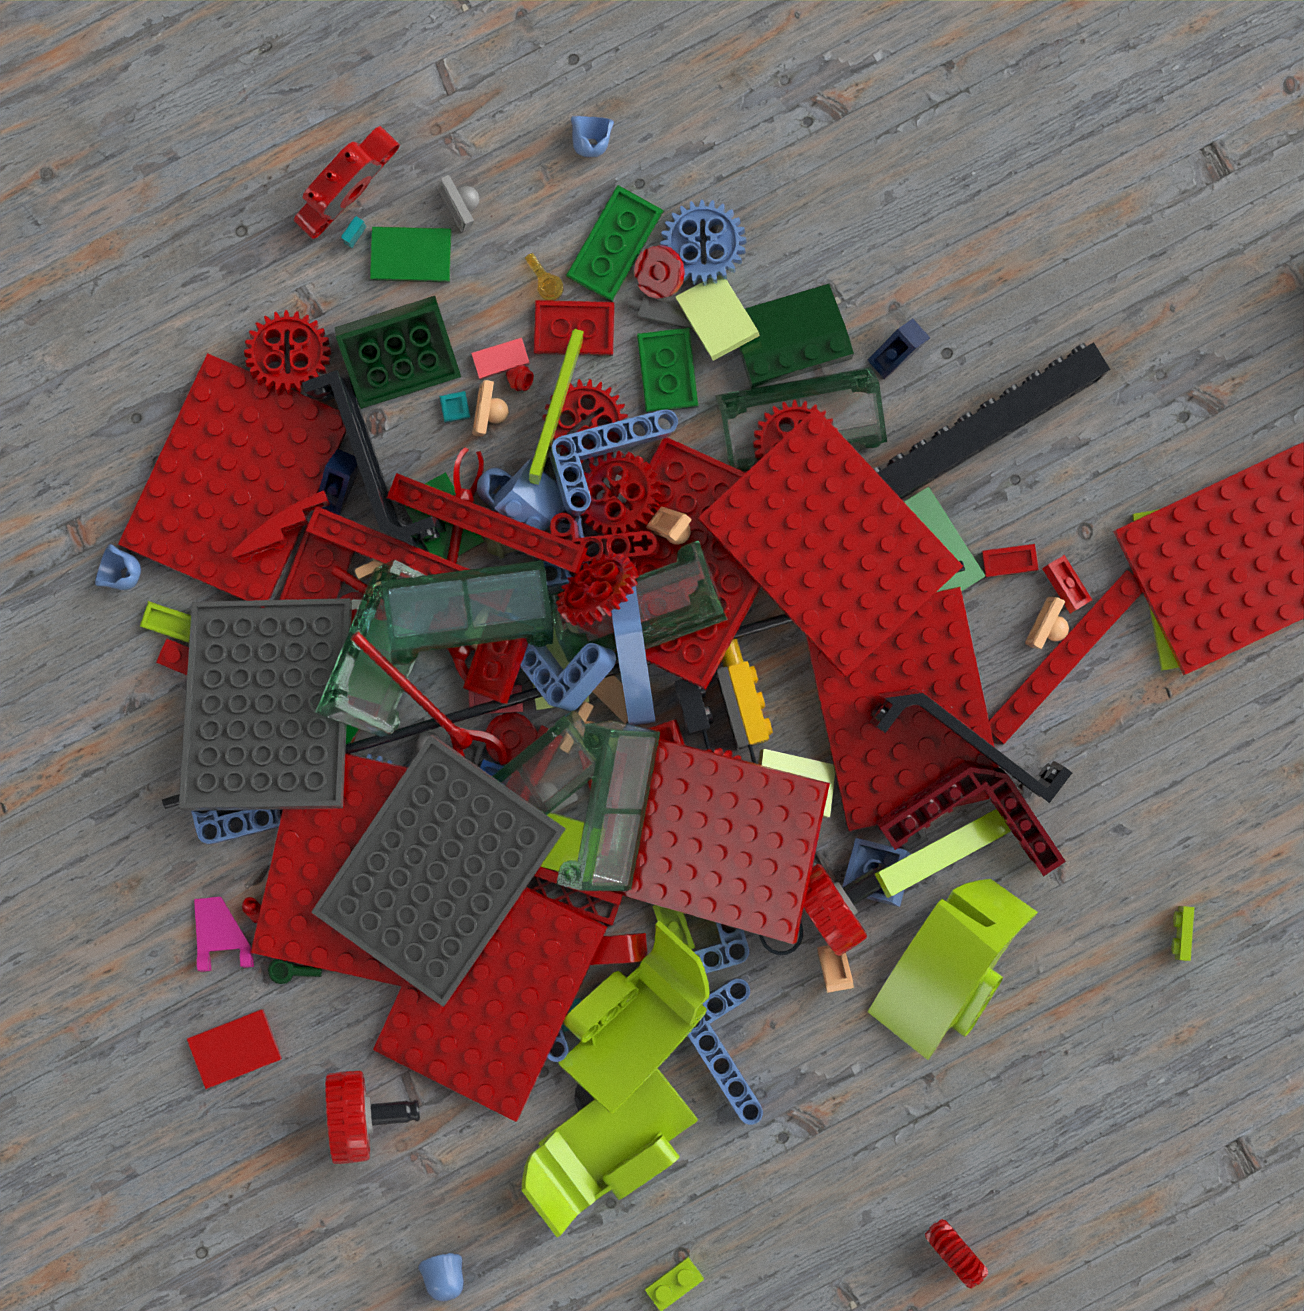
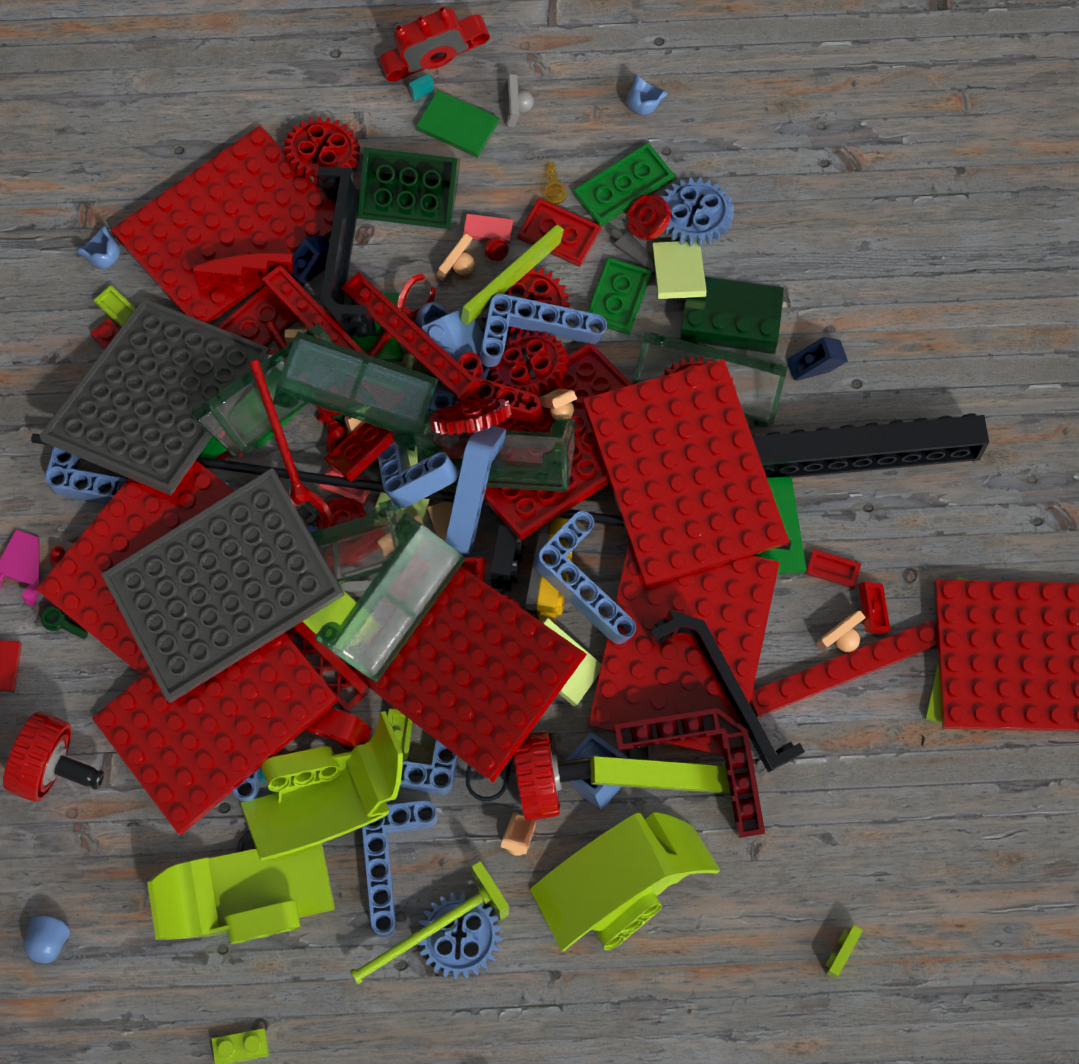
camera: 25 degrees right, 15 degrees down
(455, 407) = (432, 249): teal tile -> none
(779, 704) = (580, 581): none -> medium blue beam
(832, 1041) = (486, 893): none -> lime tile
(847, 1079) = (483, 937): none -> medium blue gear

